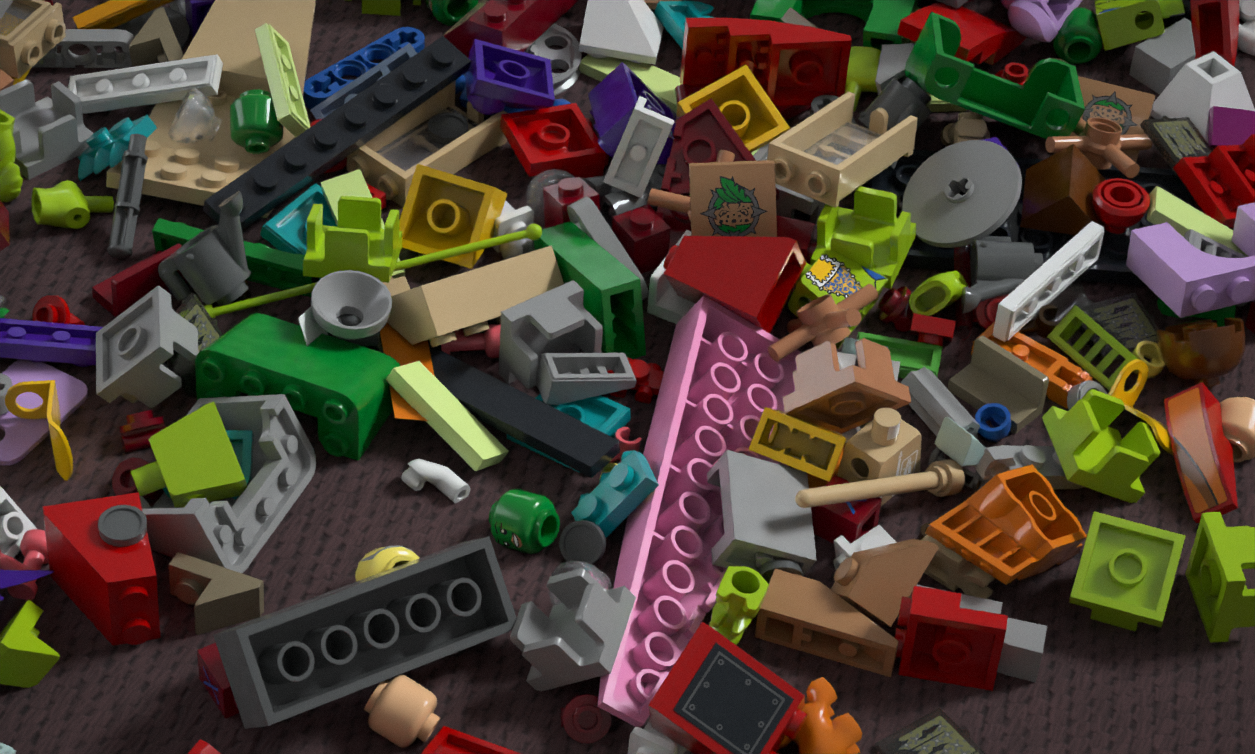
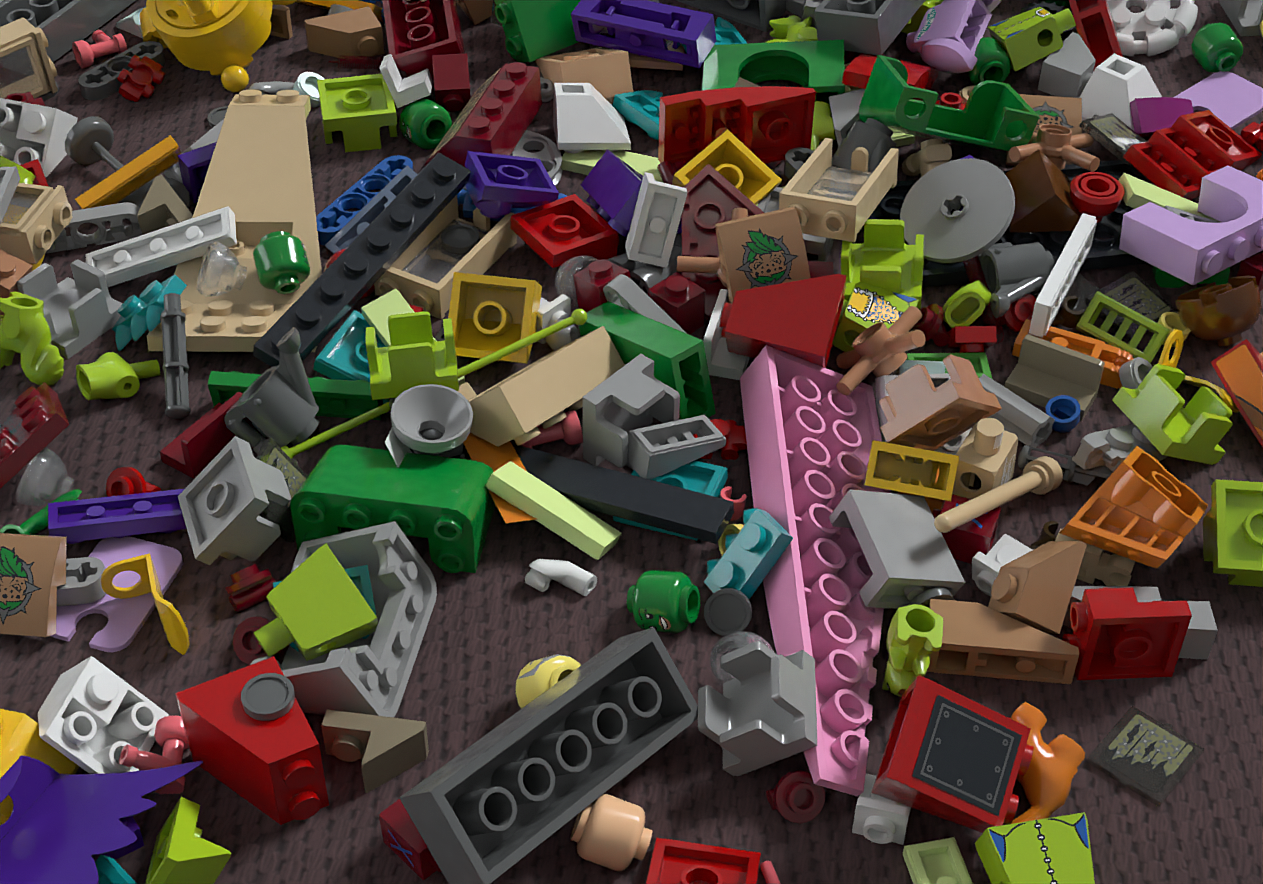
camera: 10 degrees left, 0 degrees up
(282, 80) = (298, 219): yellowish green tile -> none
(959, 443) = (1049, 439): light aqua slope -> none

